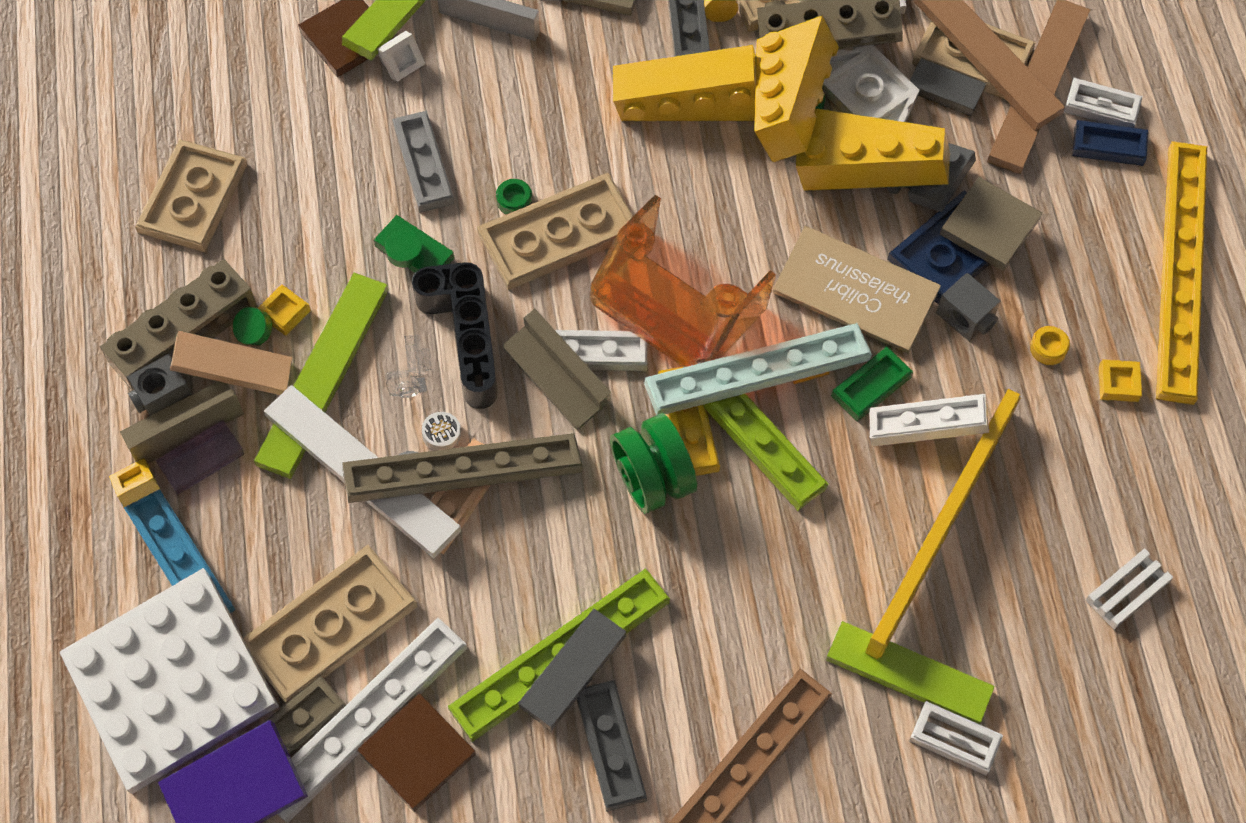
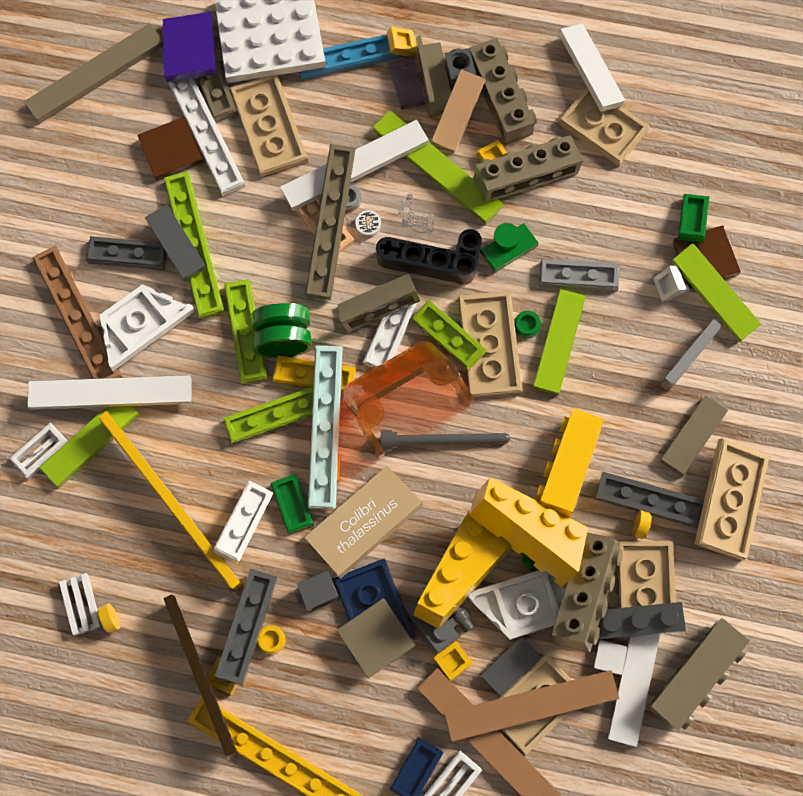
camera: 115 degrees right, 10 degrees up
(108, 228) = (591, 67): none -> white tile
(252, 326) = (485, 133): green tile -> none
(295, 252) = (527, 168): none -> dark tan brick
(299, 56) = (693, 218): none -> green tile
(523, 155) = (559, 342): none -> lime tile
(569, 273) = (449, 335): none -> lime tile
(662, 531) = (240, 306): none -> lime tile
(704, 230) = (391, 440): none -> dark grey piece
(714, 675) = (139, 322): none -> white wing
(836, 668) = (109, 392): none -> white tile
(974, 139) = (453, 661): none -> yellow tile
(1055, 368) = (246, 627): none -> dark grey plate
(1129, 539) = (108, 618): none -> yellow tile
(1141, 394) = (201, 677): none -> dark brown tile

